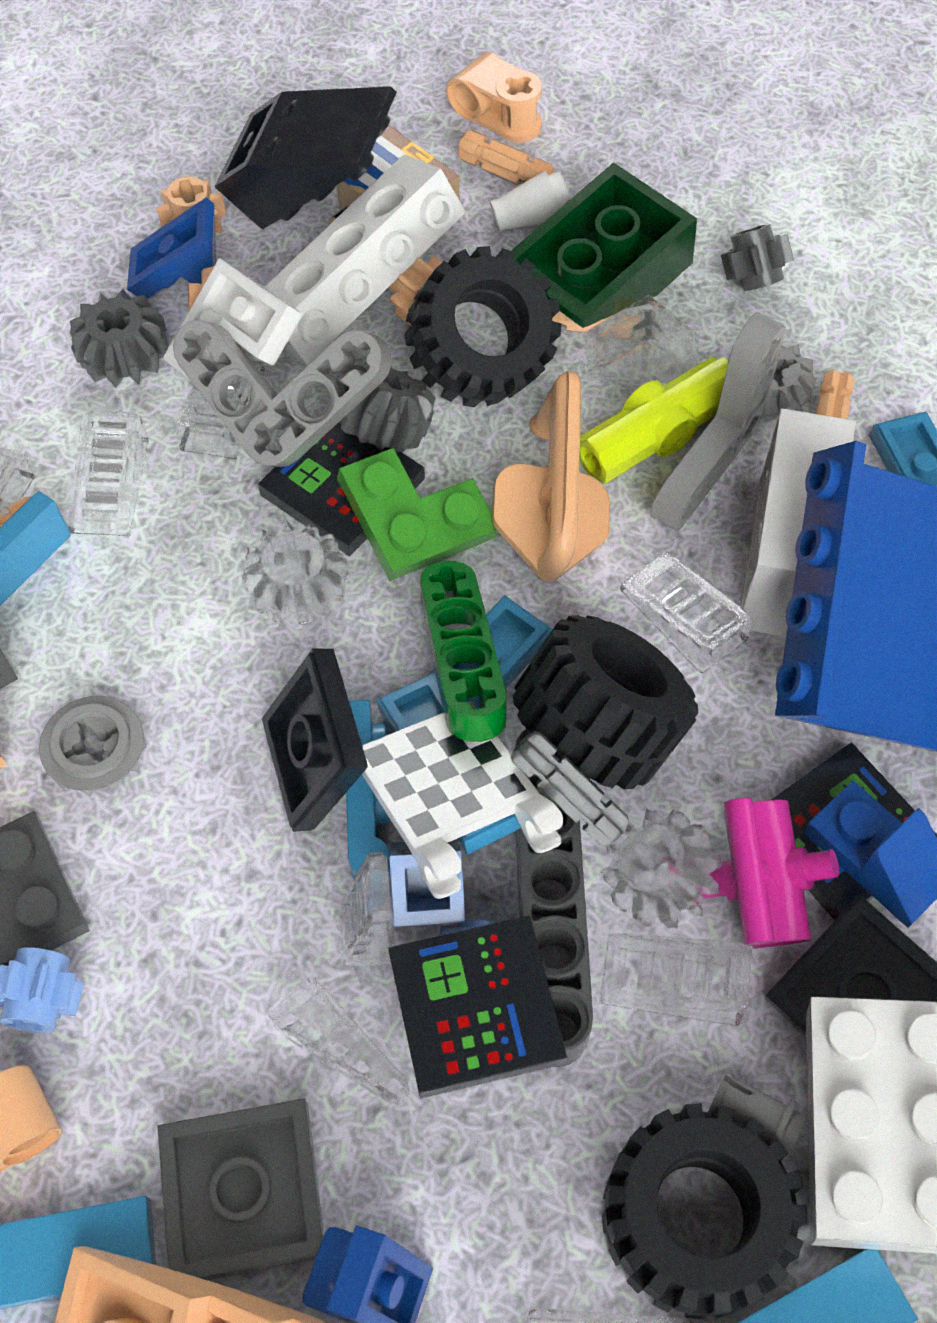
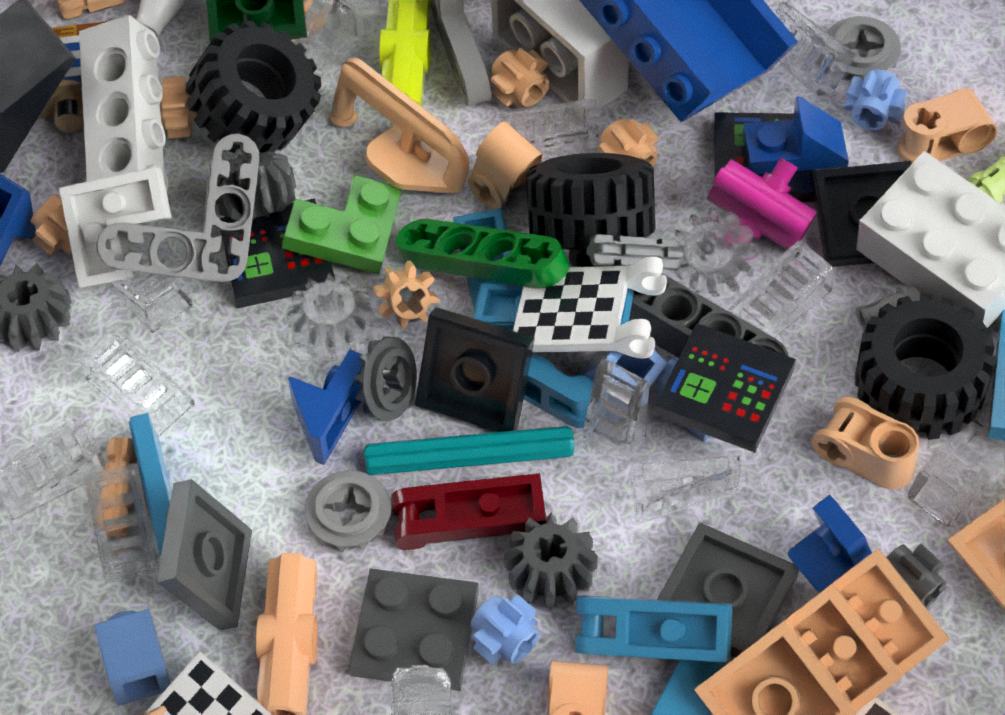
camera: 50 degrees left, 5 degrees down
(126, 1151) = (656, 628): none -> dark azure plate
(138, 953) = (550, 560): none -> dark grey gear
(169, 857) = (467, 509): none -> dark red plate
(177, 649) = (327, 410): none -> blue slope
(235, 687) = (397, 365): none -> dark grey gear
(245, 806) = (469, 450): none -> teal axle
(370, 617) = (417, 305): none -> light nougat gear
(553, 1203) = (864, 442): none -> light nougat piece
(588, 584) = (501, 165): none -> light nougat piece
(716, 534) = (520, 77): none -> light nougat gear
(724, 691) = (630, 139): none -> light nougat gear

